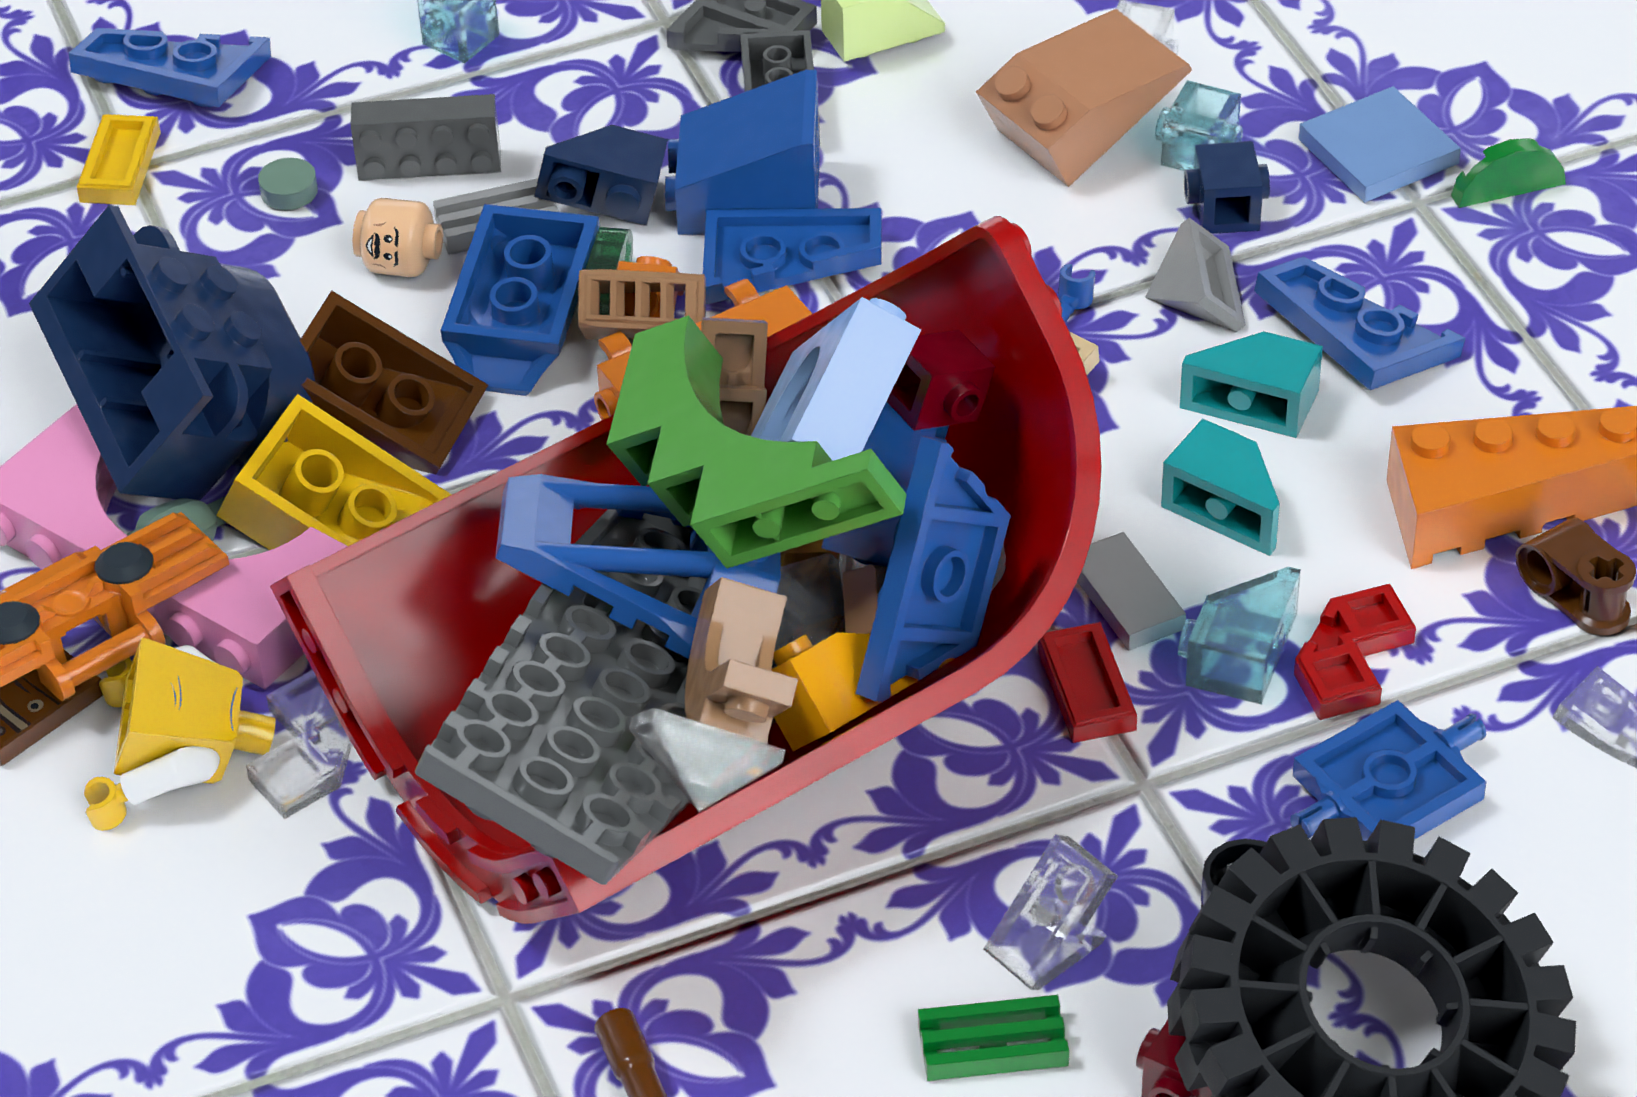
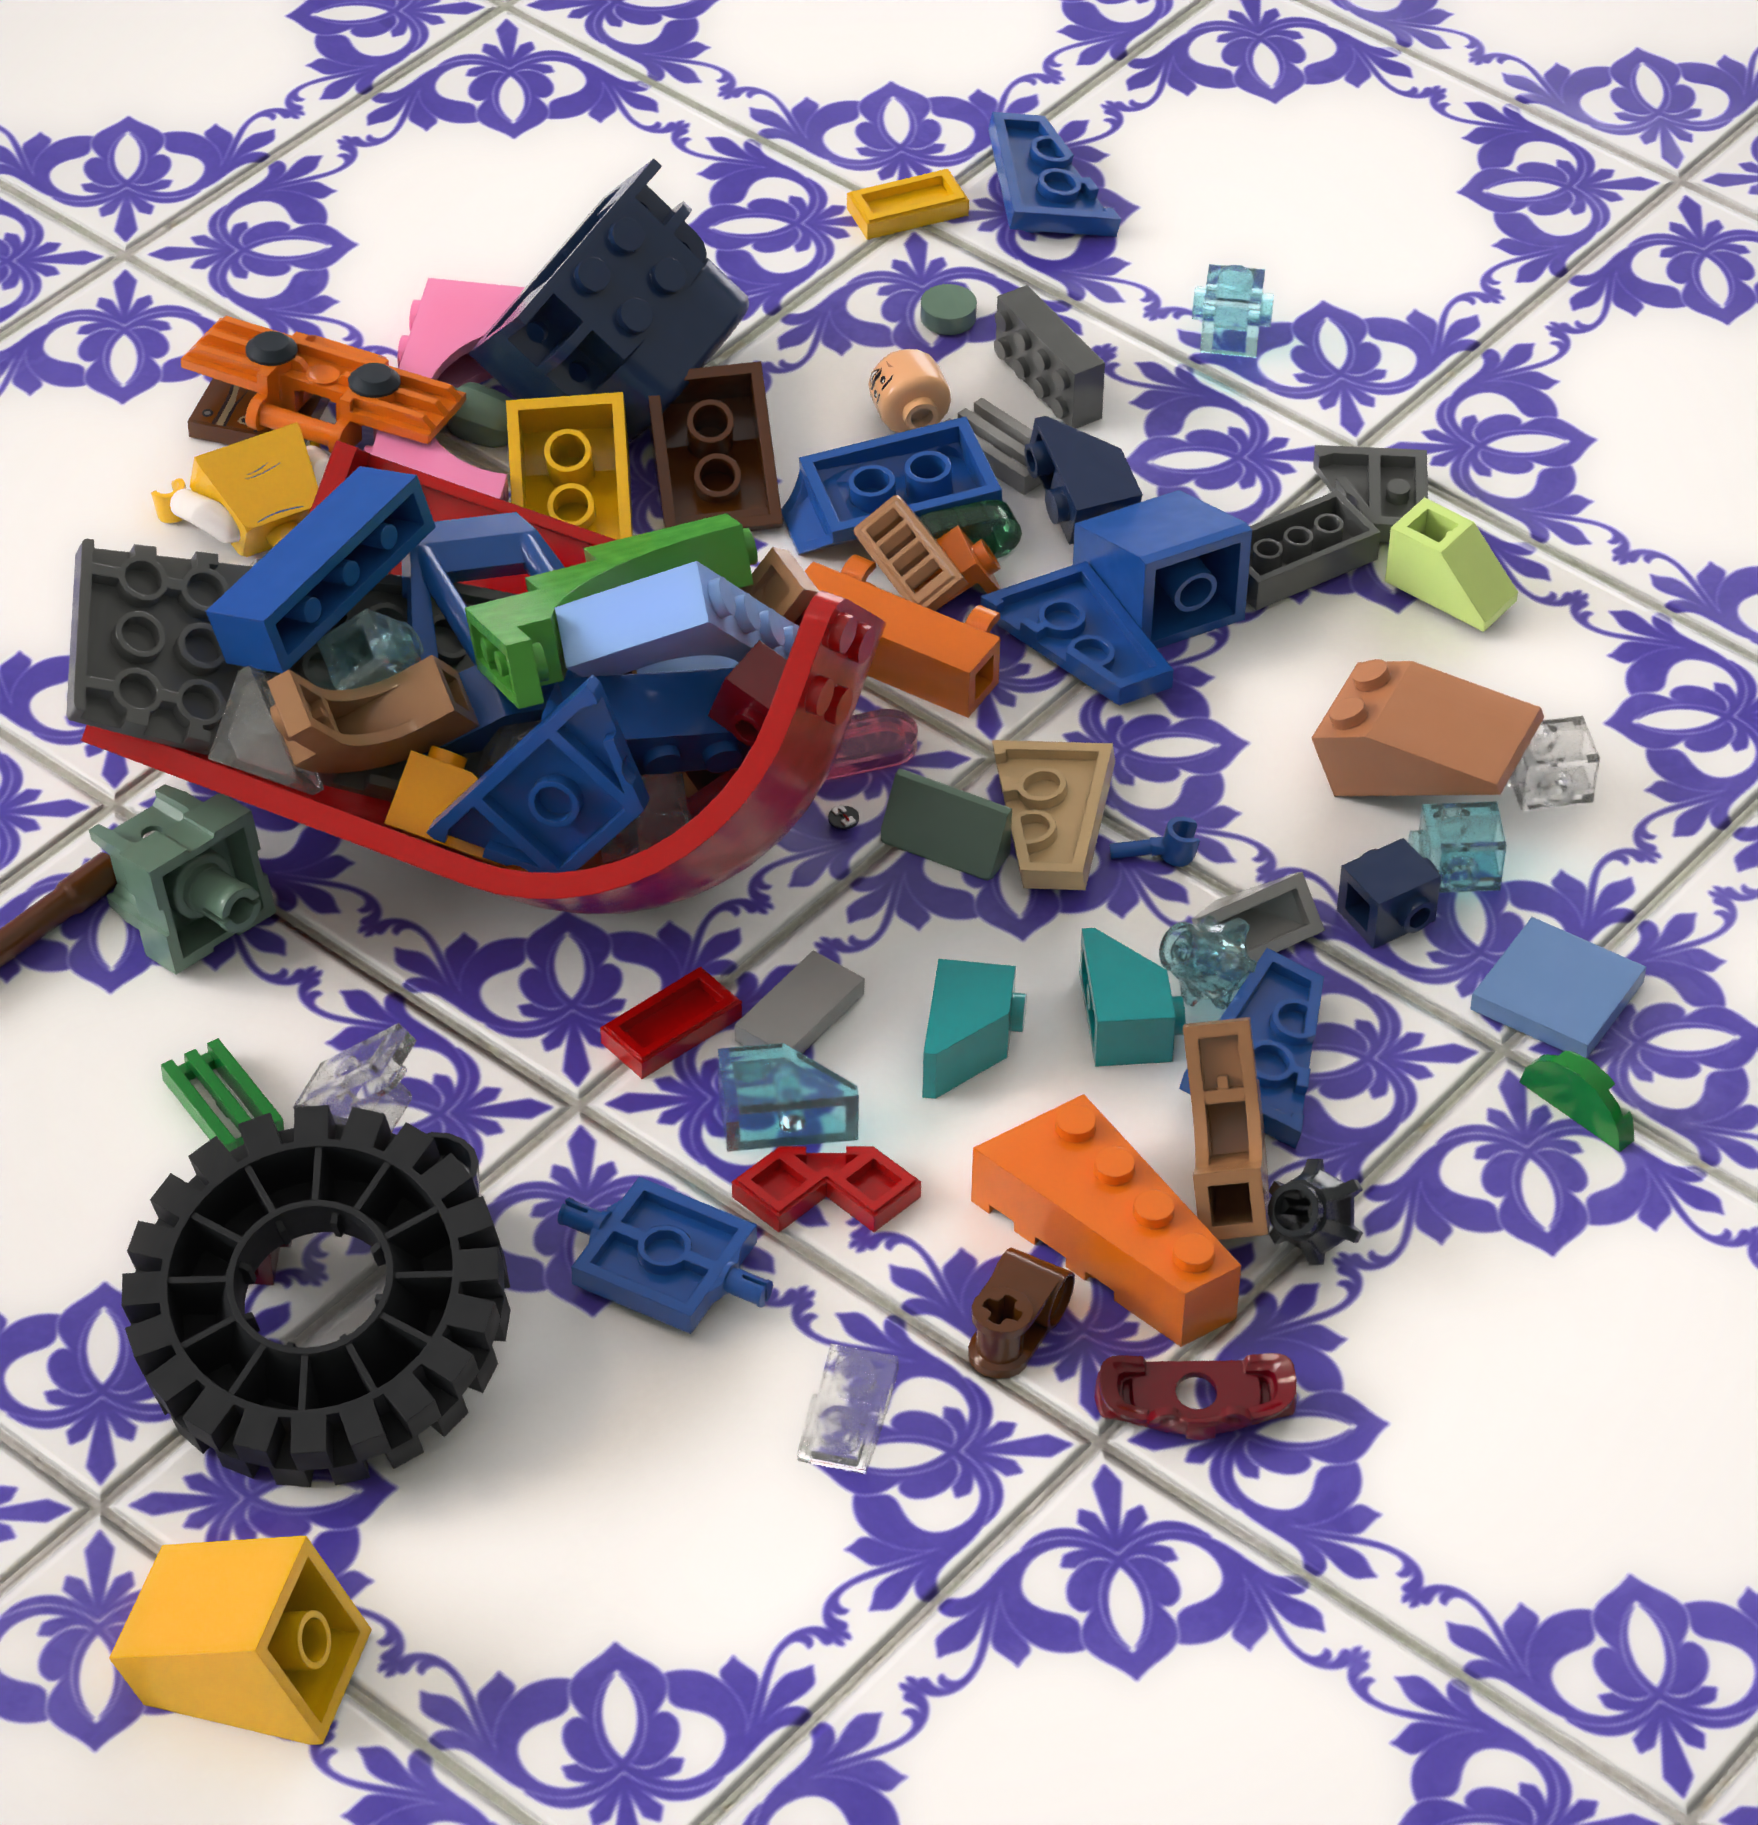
camera: 60 degrees right, 0 degrees up
(559, 608) = (321, 569): none -> blue brick
(668, 634) = (369, 649): none -> clear light blue brick
(700, 951) = (190, 877): none -> sand green piece
(1245, 286) = (1207, 959): none -> clear light blue rock
(1467, 376) = (1228, 1129): none -> medium nougat arch
(1571, 357) = (1314, 1211): none -> black rock

